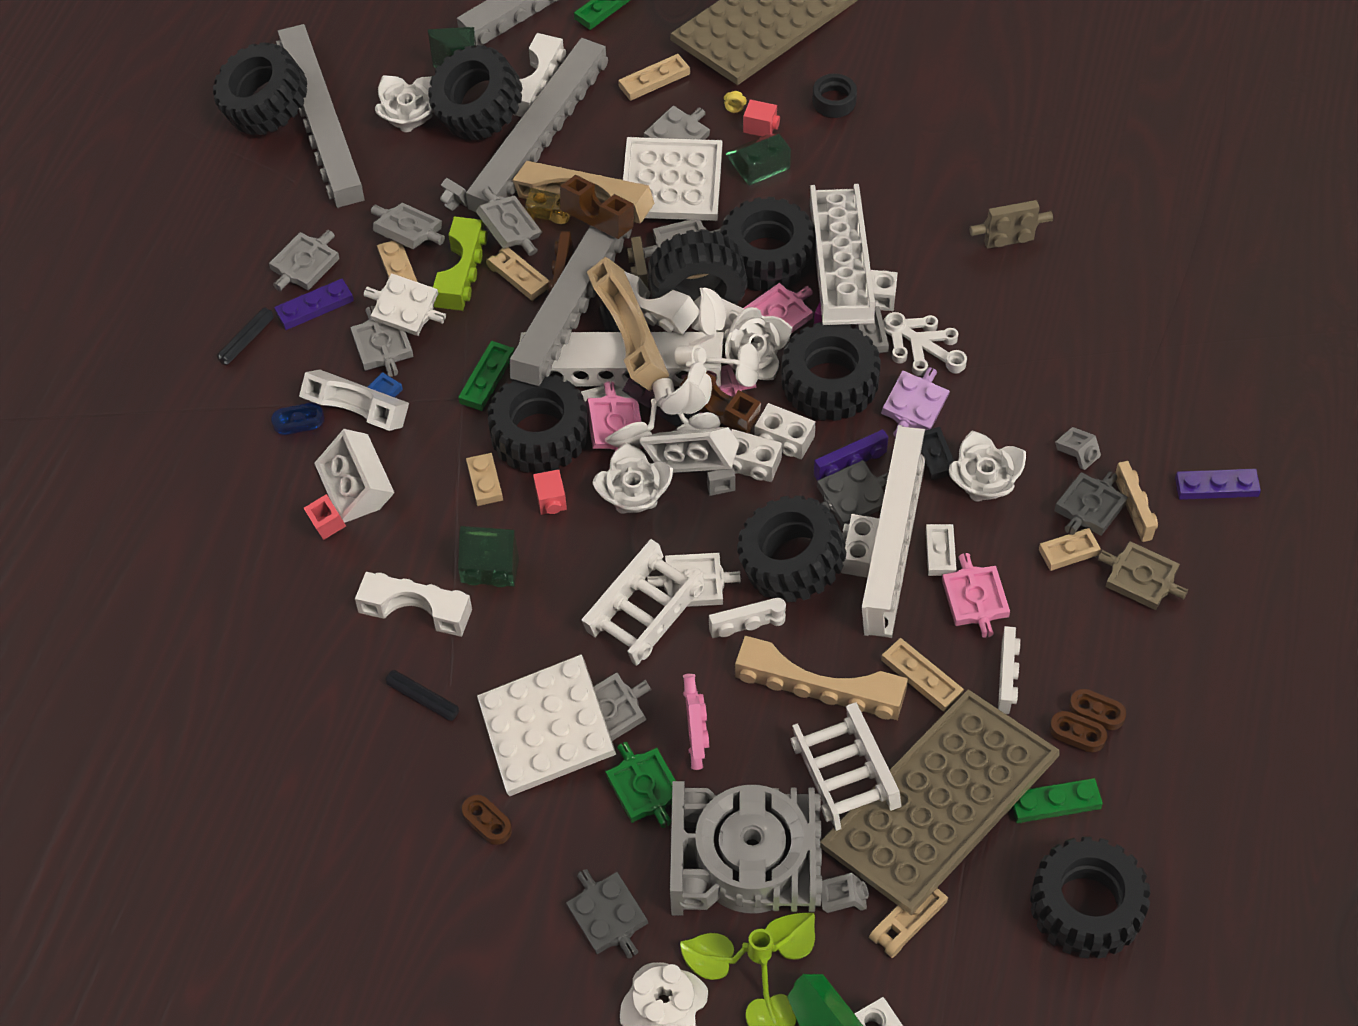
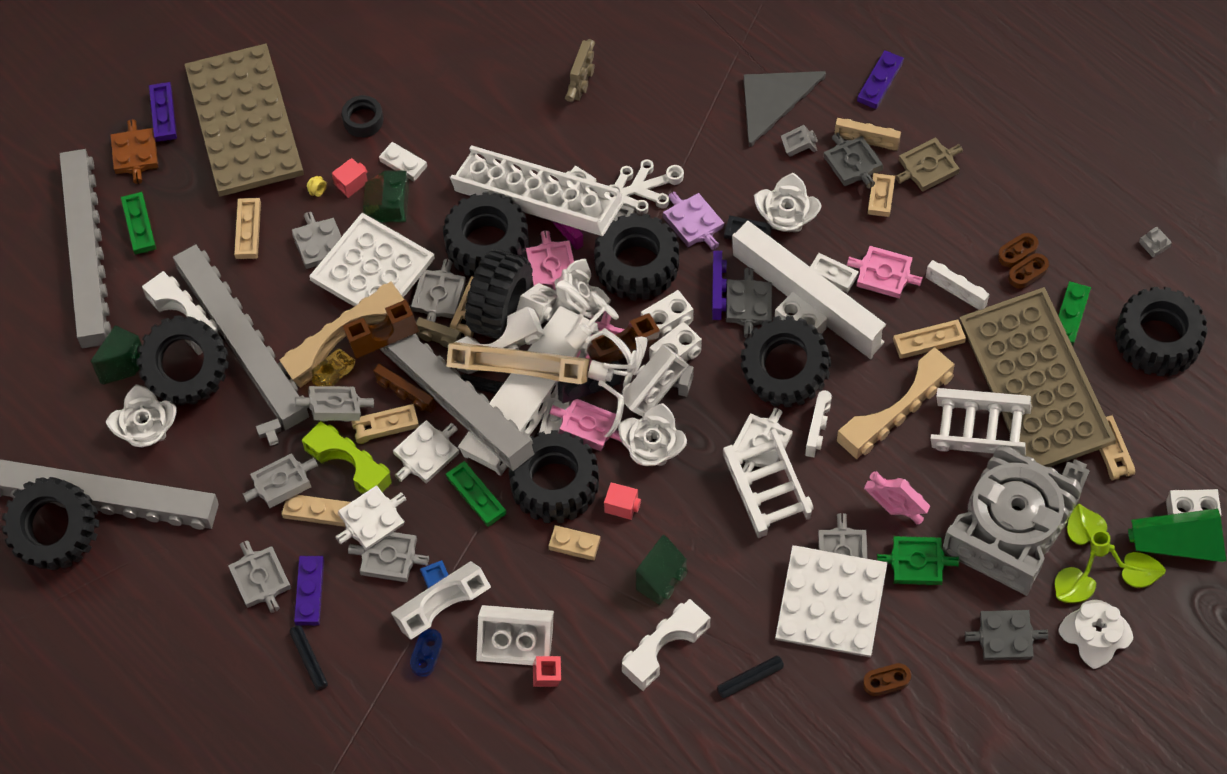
camera: 60 degrees left, 5 degrees up
(505, 316) = (426, 452): none -> white plate
(810, 150) = (403, 160): none -> white plate
(1116, 399) = (773, 96): none -> dark grey tile
(1215, 846) = (1155, 242): none -> light grey tile

